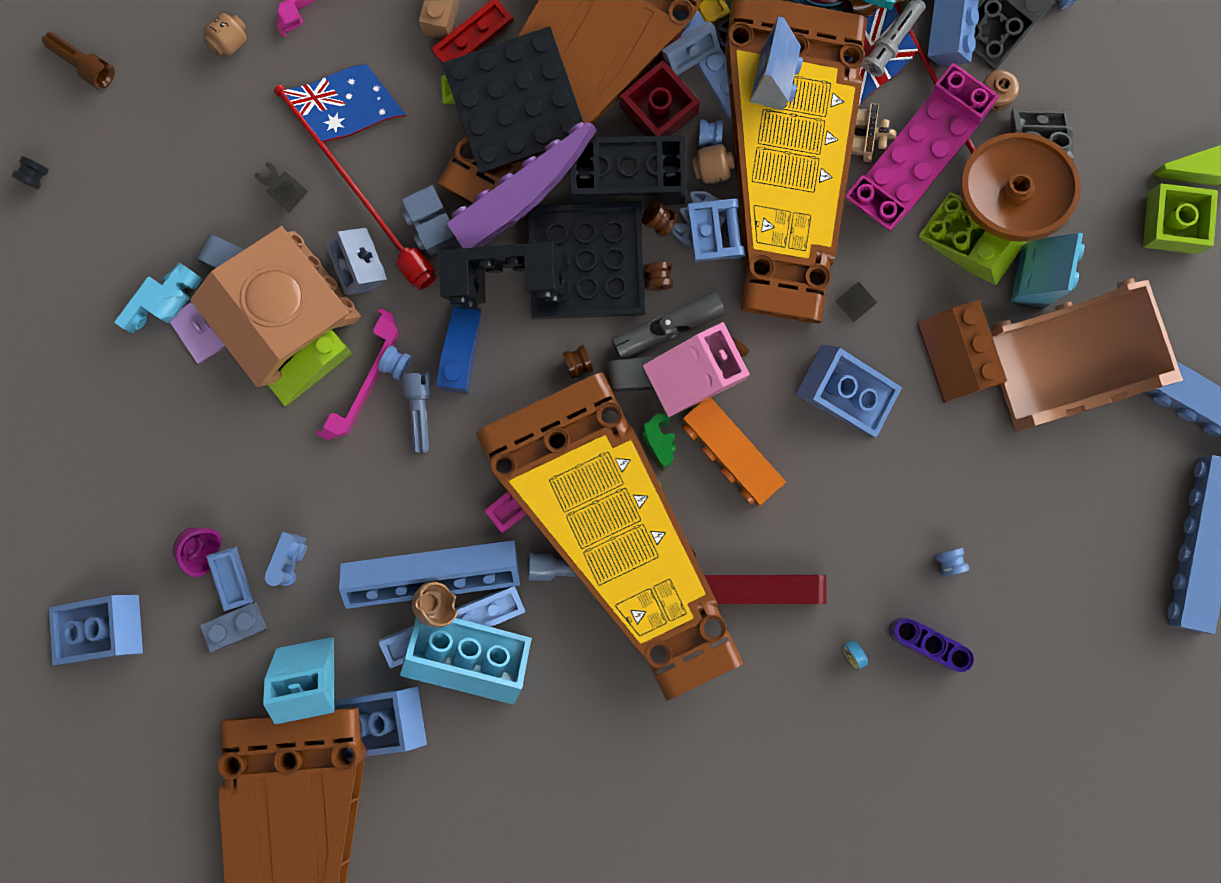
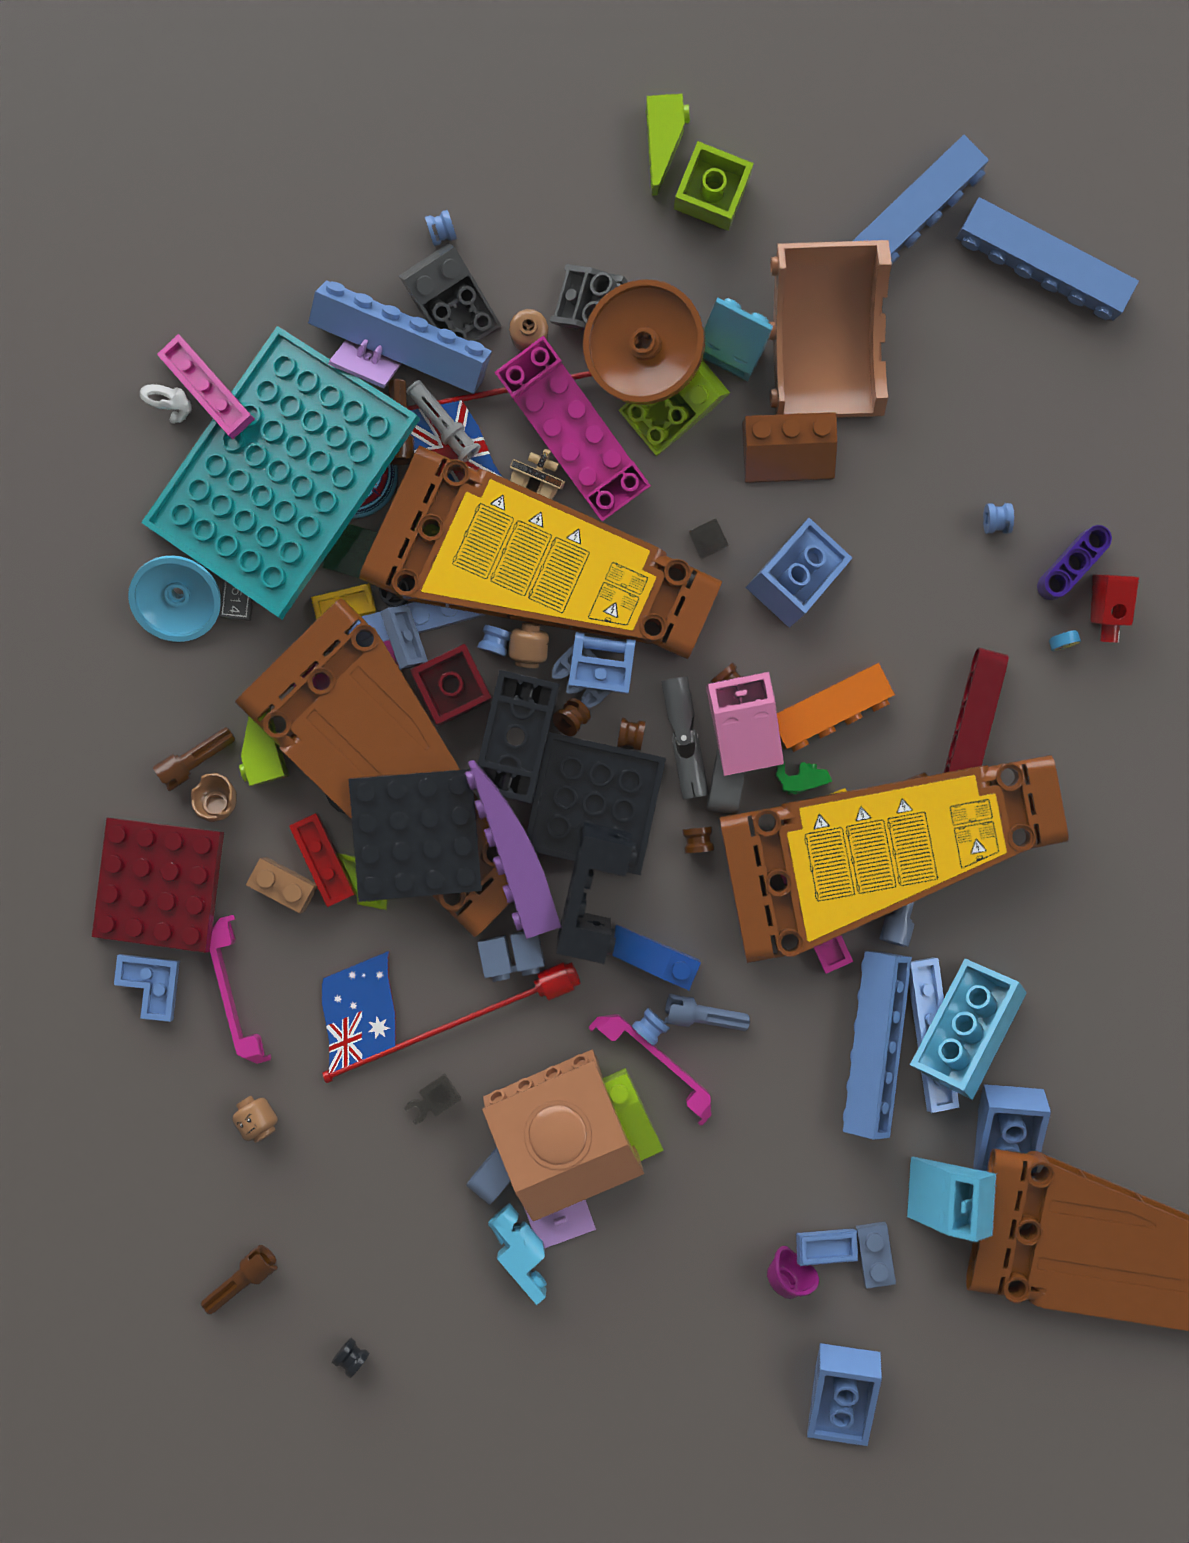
camera: 75 degrees left, 5 degrees up
(285, 557) = (834, 1191): medium blue plate -> none
(356, 261) = (535, 1040): sand blue brick -> none
(434, 605) = (914, 1047): medium nougat hair -> none
(777, 68) = (459, 558): medium blue slope -> none
(916, 690) = (1115, 593): none -> red torso

